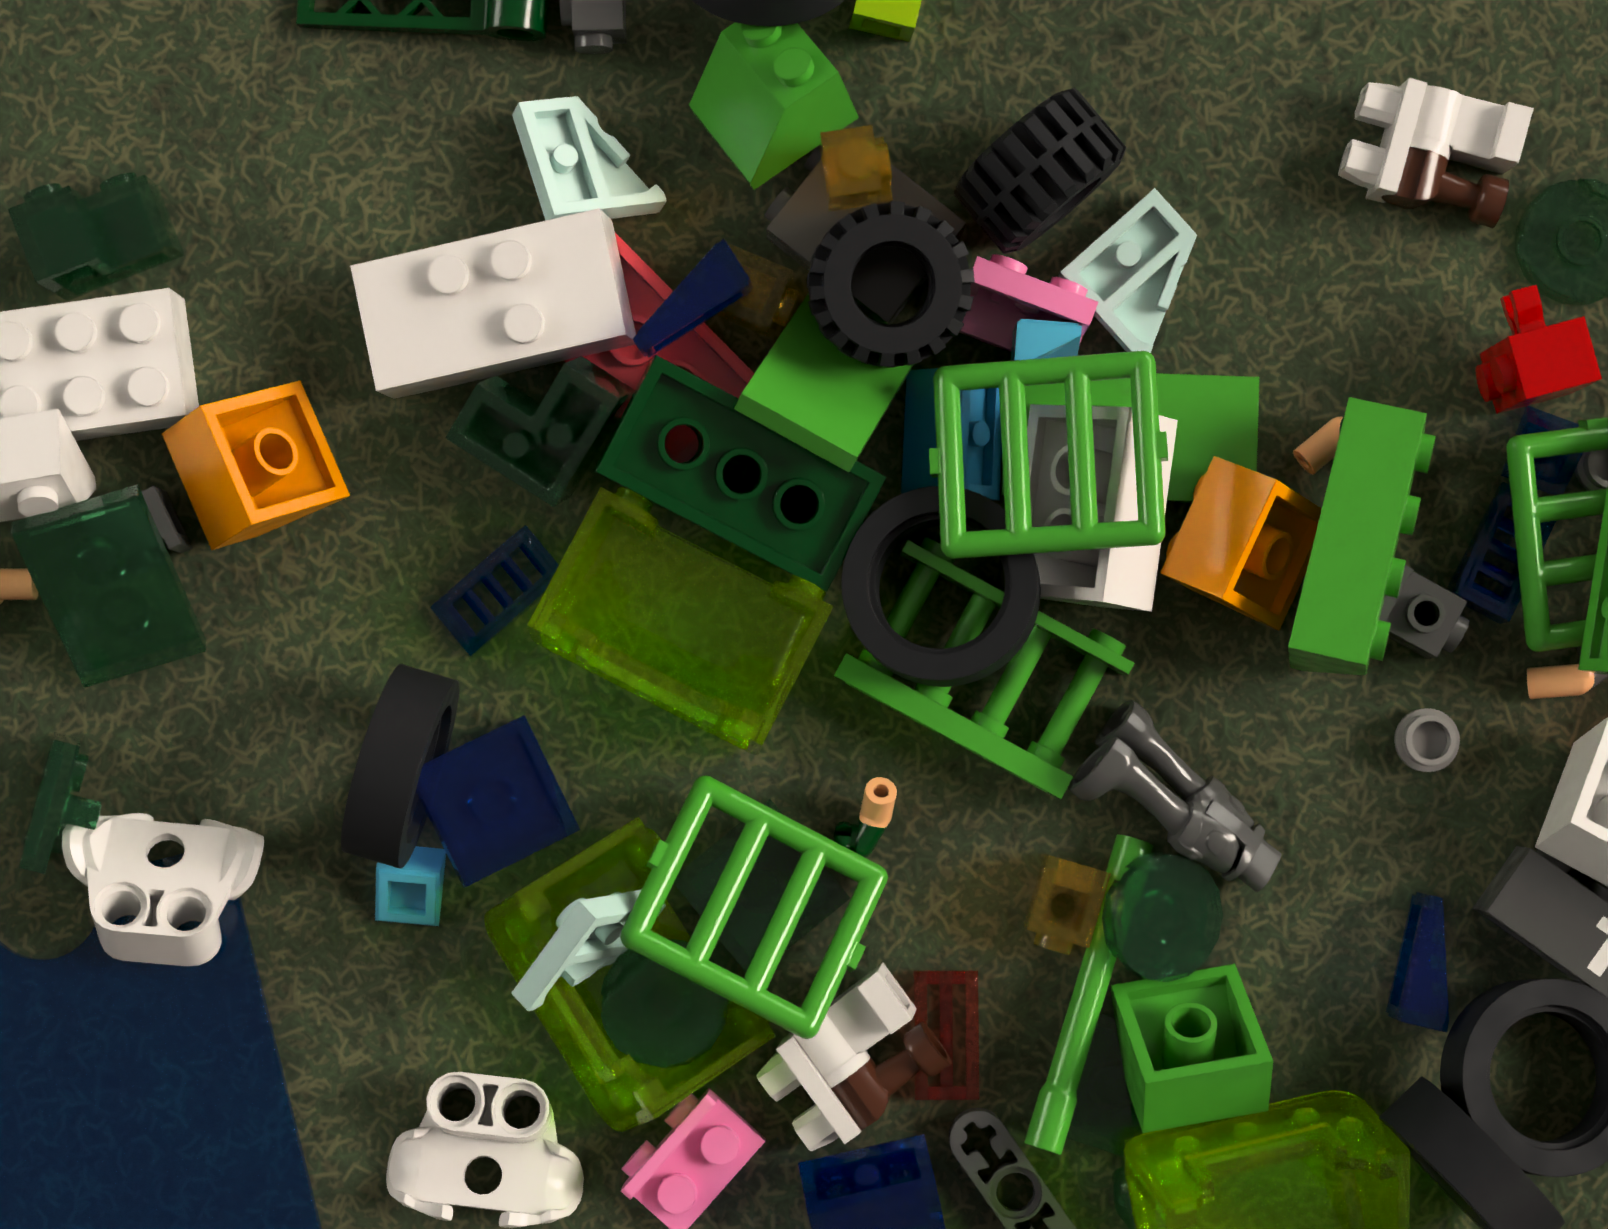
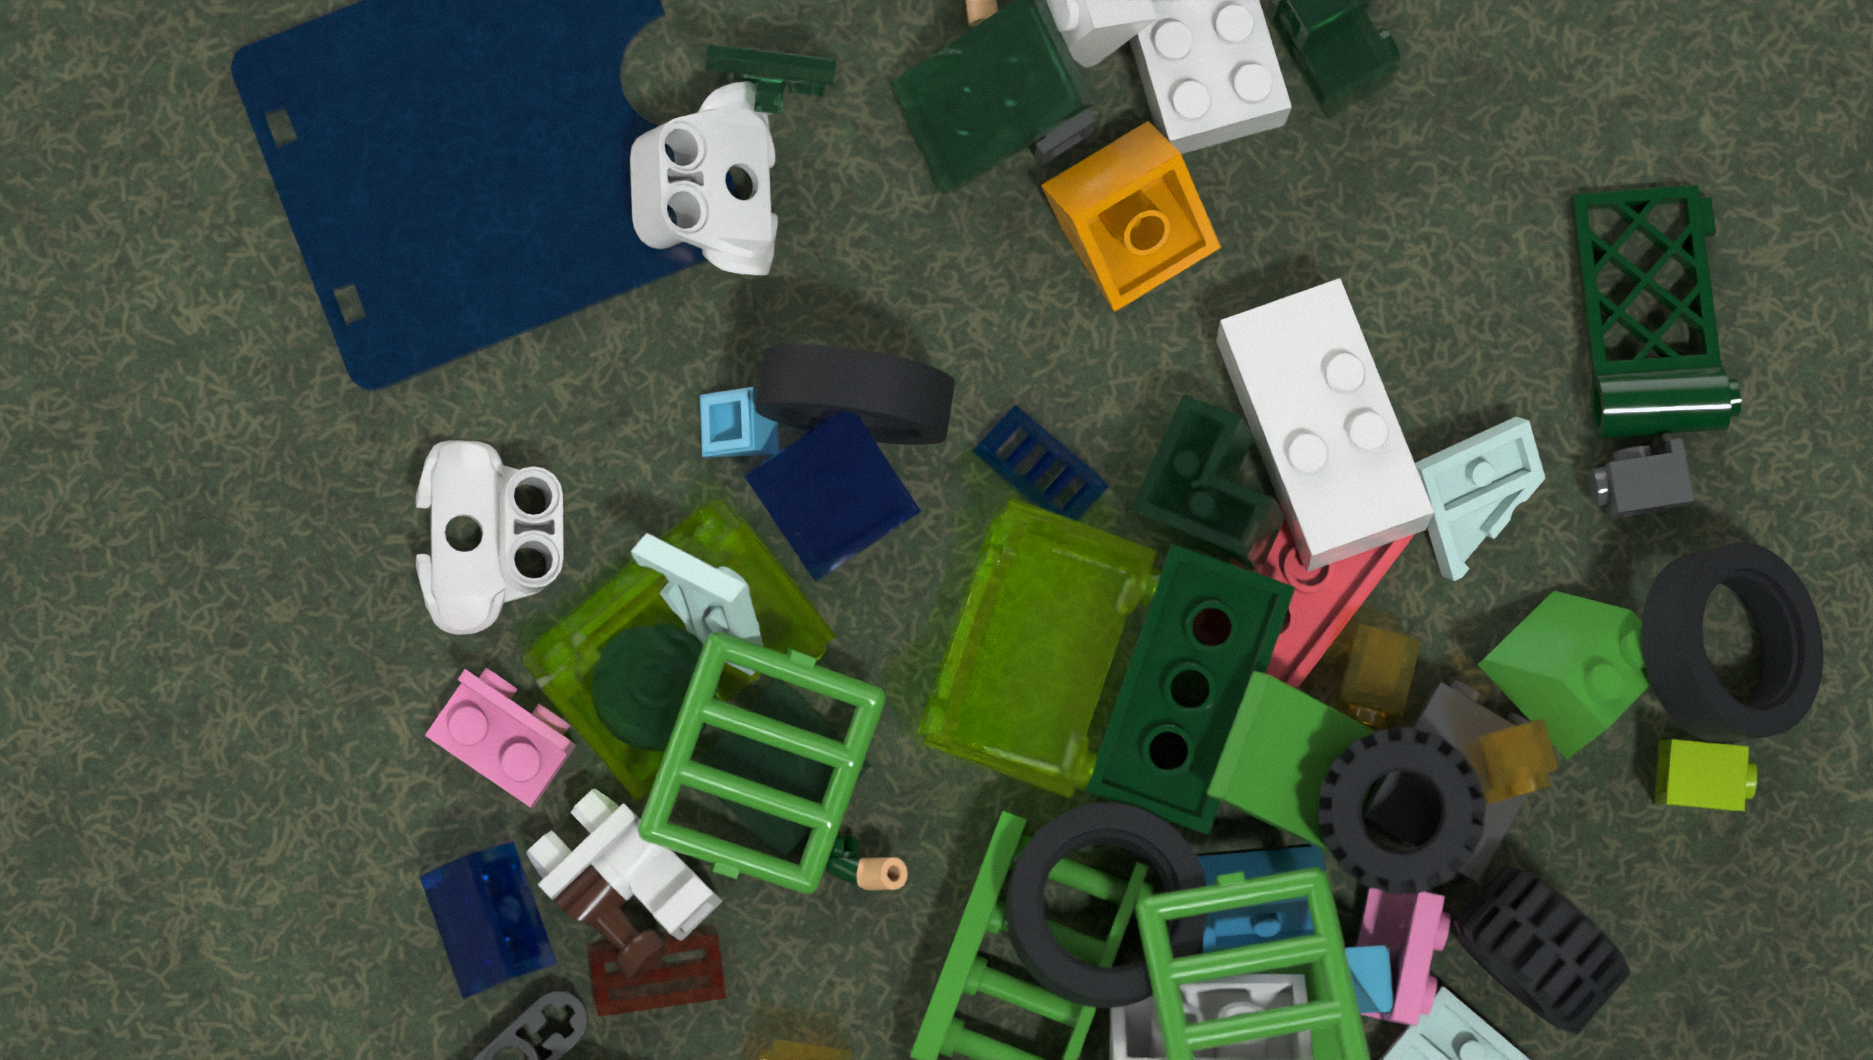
camera: 80 degrees right, 5 degrees down
(704, 293) = (1365, 627): clear blue slope -> none

